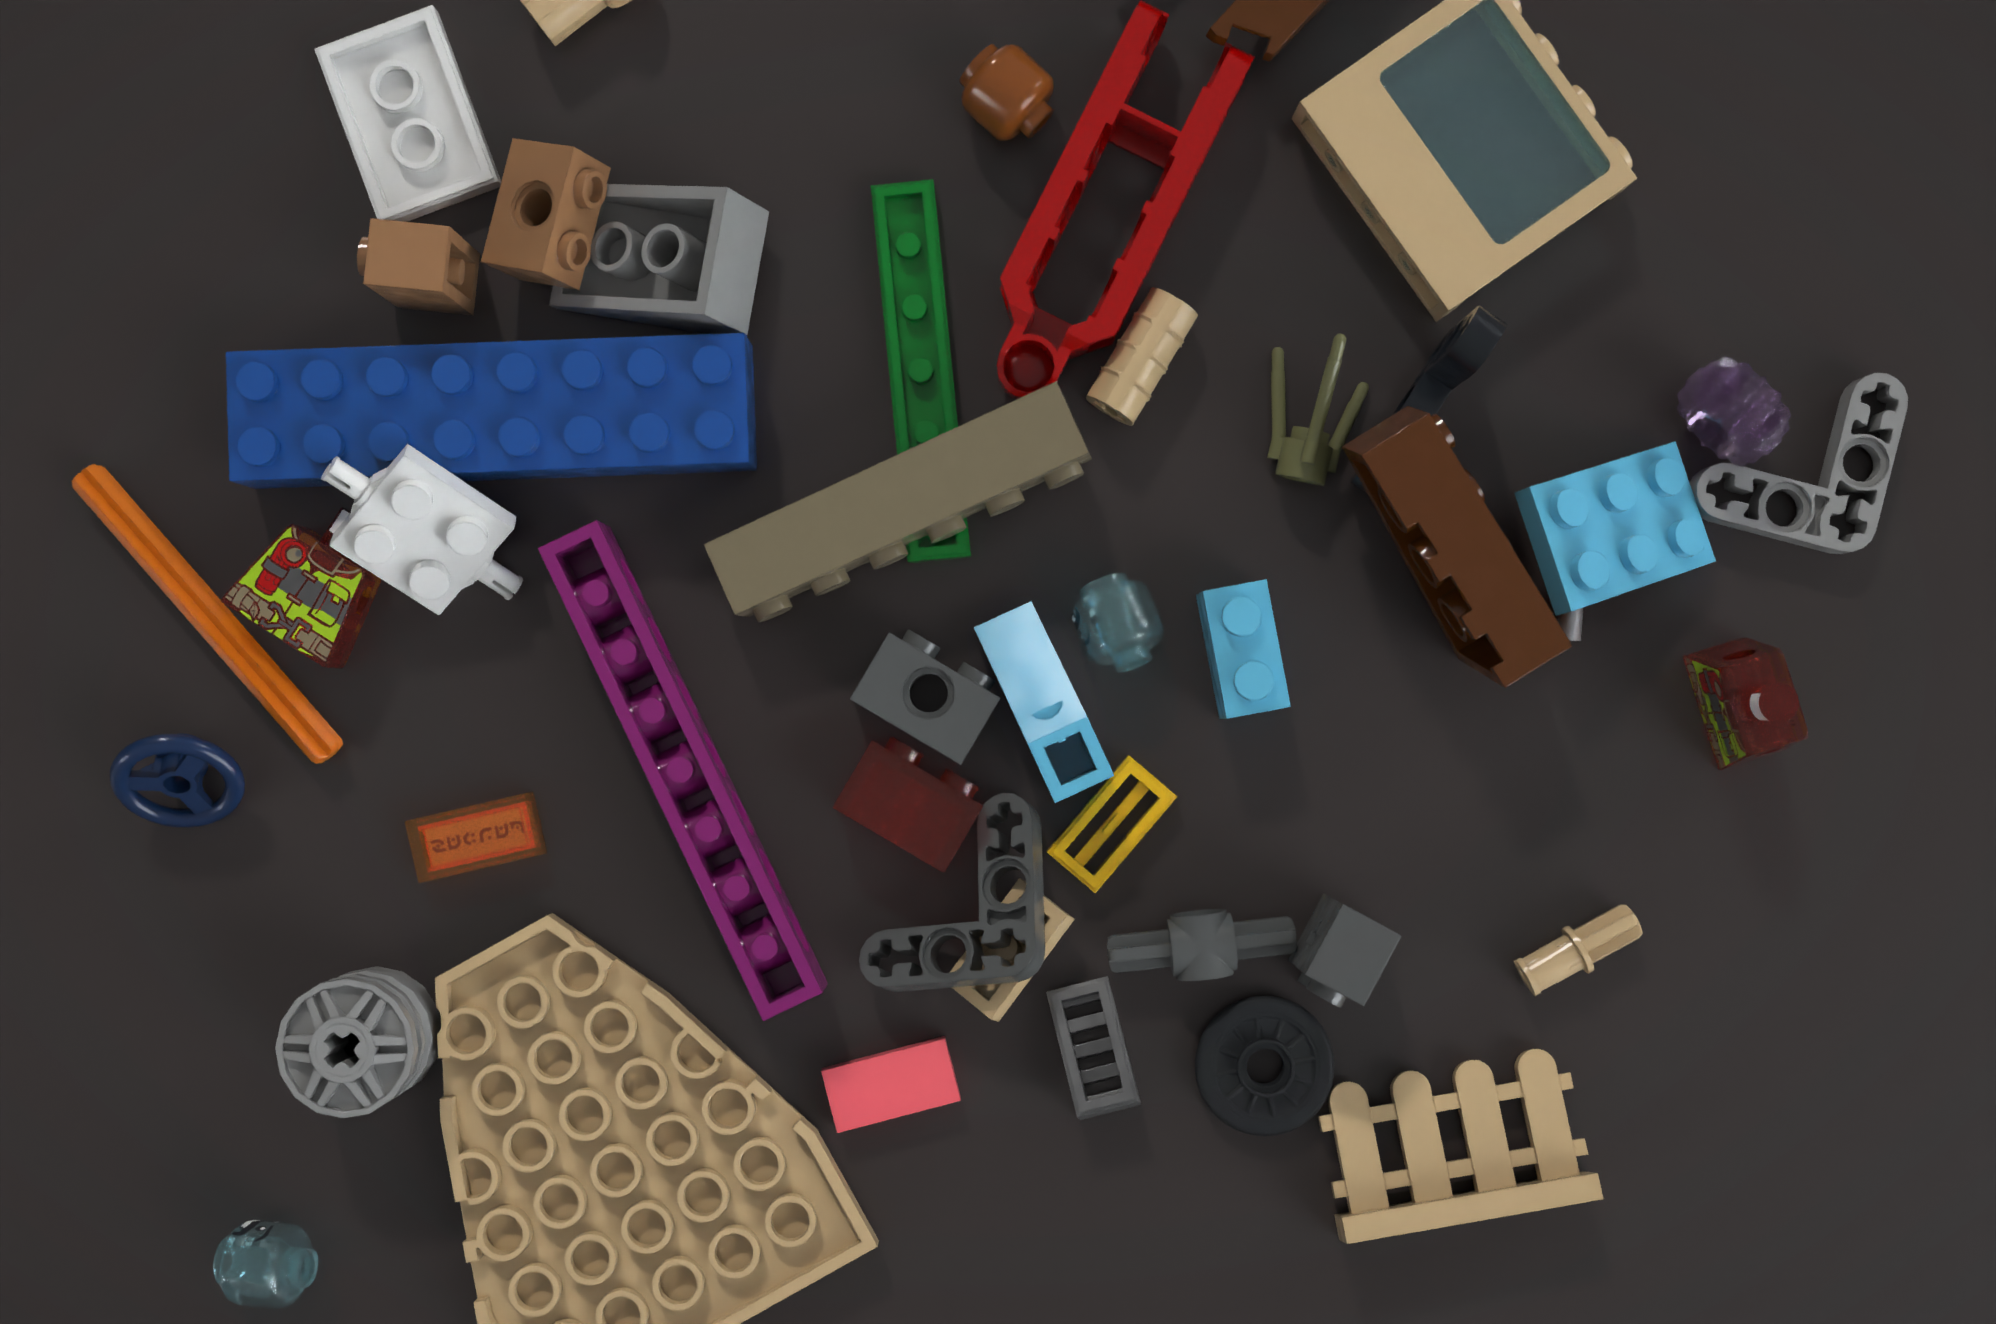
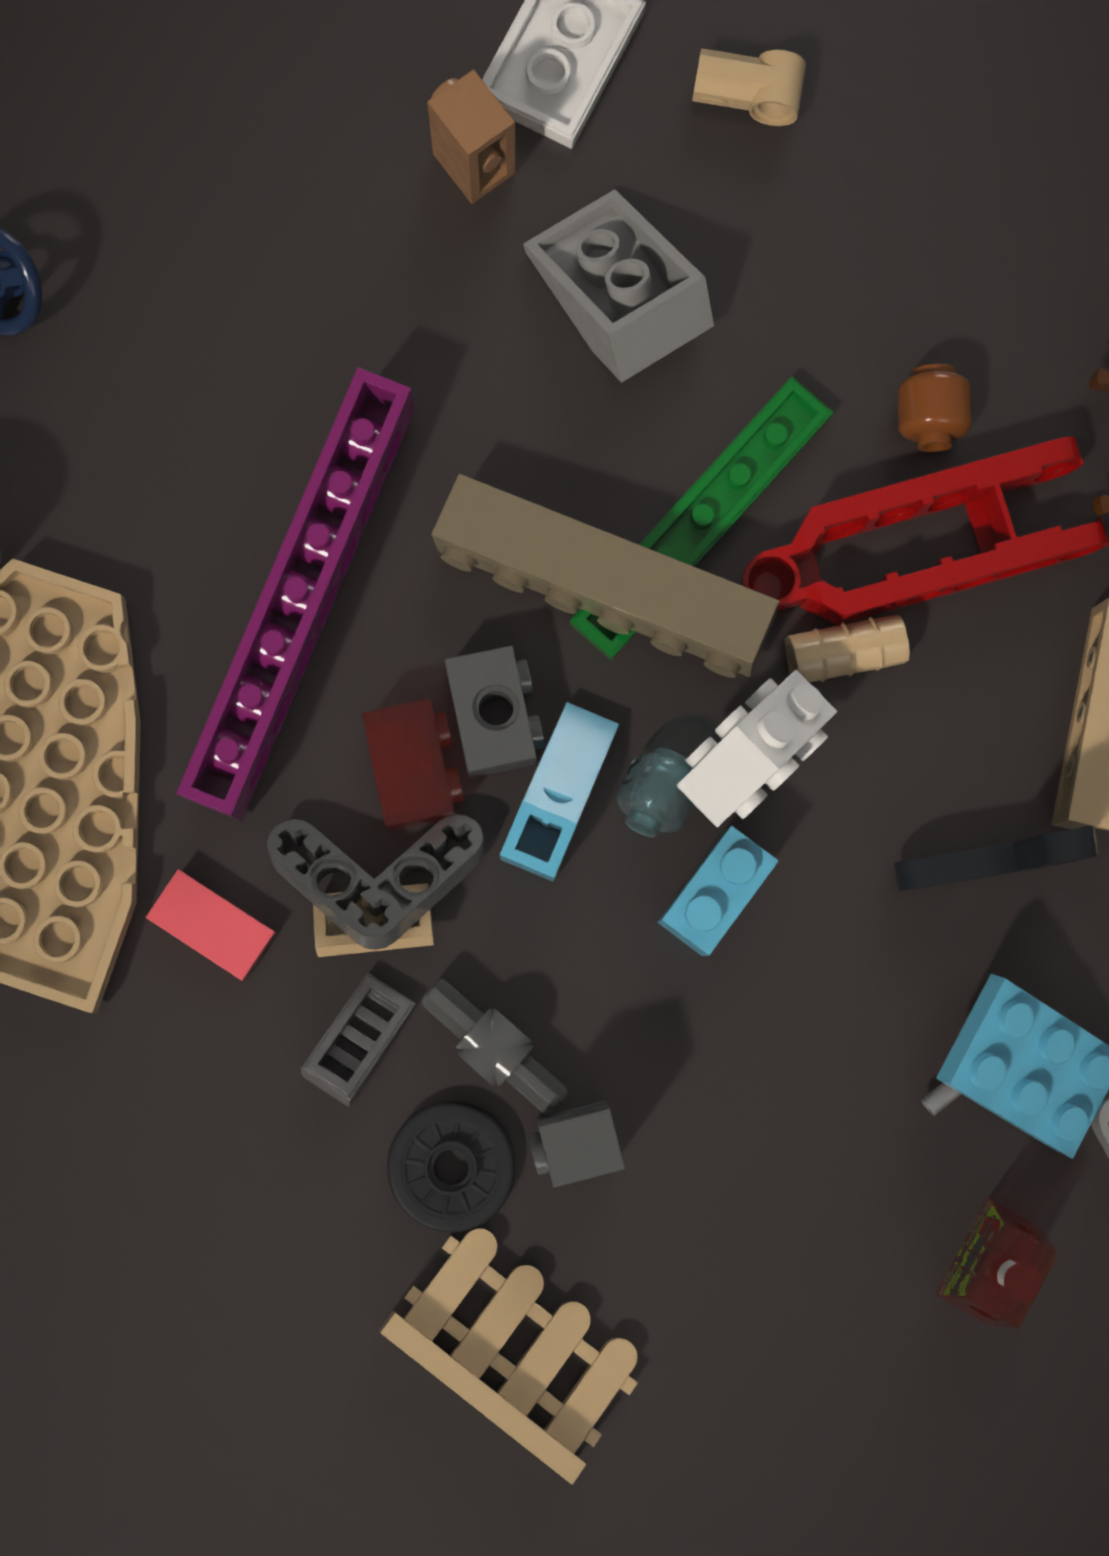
camera: 40 degrees right, 5 degrees down
(207, 613) = (122, 208): orange axle -> none
(307, 594) = (199, 255): torso -> none
(422, 529) = (302, 287): white plate -> none
(475, 837) = (131, 505): clear orange tile -> none
(495, 408) = (421, 266): blue brick -> none
(546, 213) = (579, 186): medium nougat brick -> none
(1132, 838) = (471, 915): yellow tile -> none
(1160, 512) = (756, 748): none -> white brick
(1306, 452) = (885, 815): olive plant -> none
(1455, 547) = (918, 967): reddish brown wedge -> none
(1579, 948) = (727, 1309): tan axle -> none

